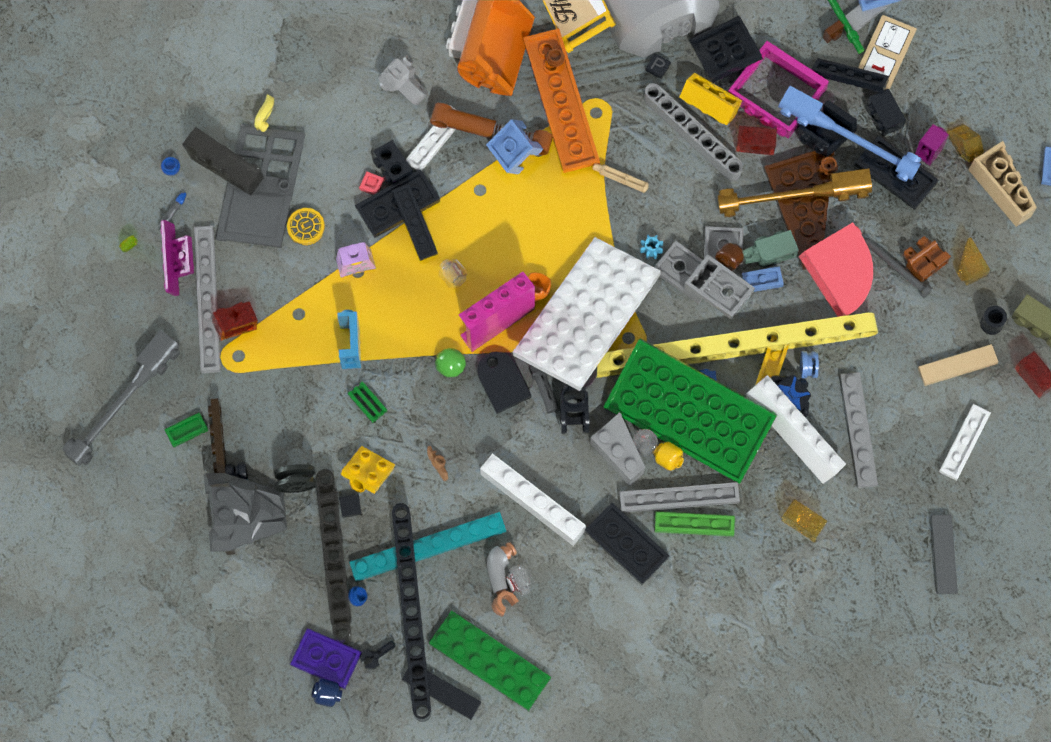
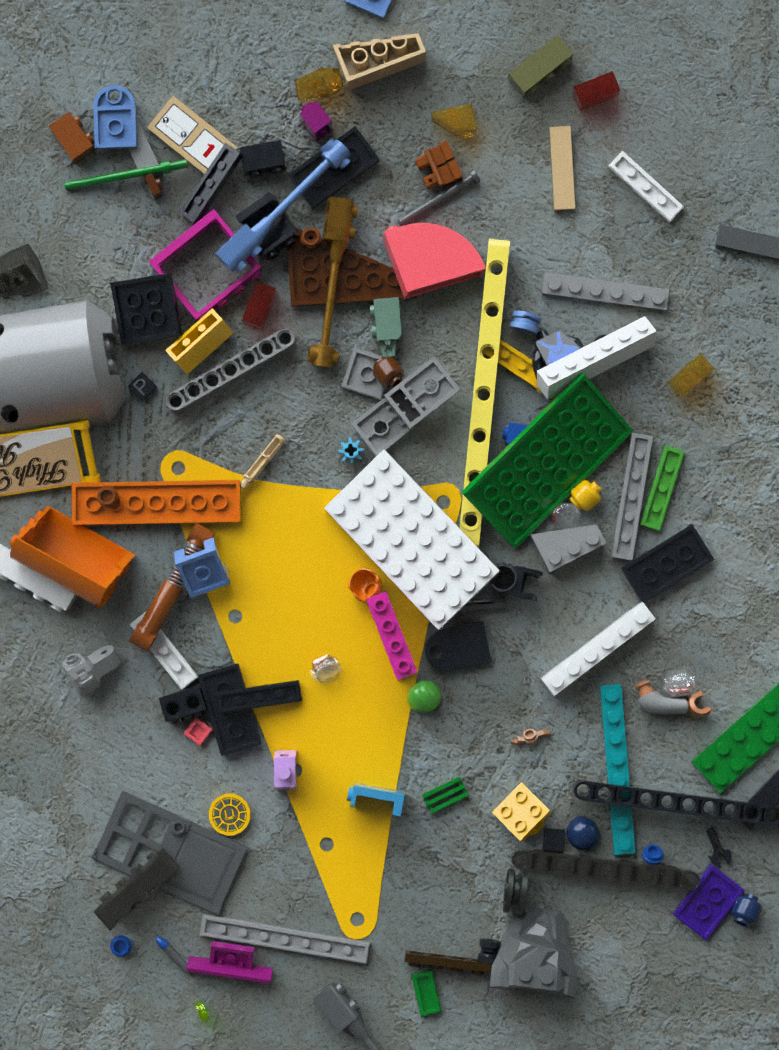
camera: 75 degrees left, 15 degrees up
(234, 320) = (328, 925): clear red brick -> none
(263, 114) = (86, 830): light yellow arm -> none
(362, 530) = (583, 833): none -> dark blue hair
(764, 278) = (417, 343): medium blue plate -> none
(993, 320) = (525, 117): black piece -> none

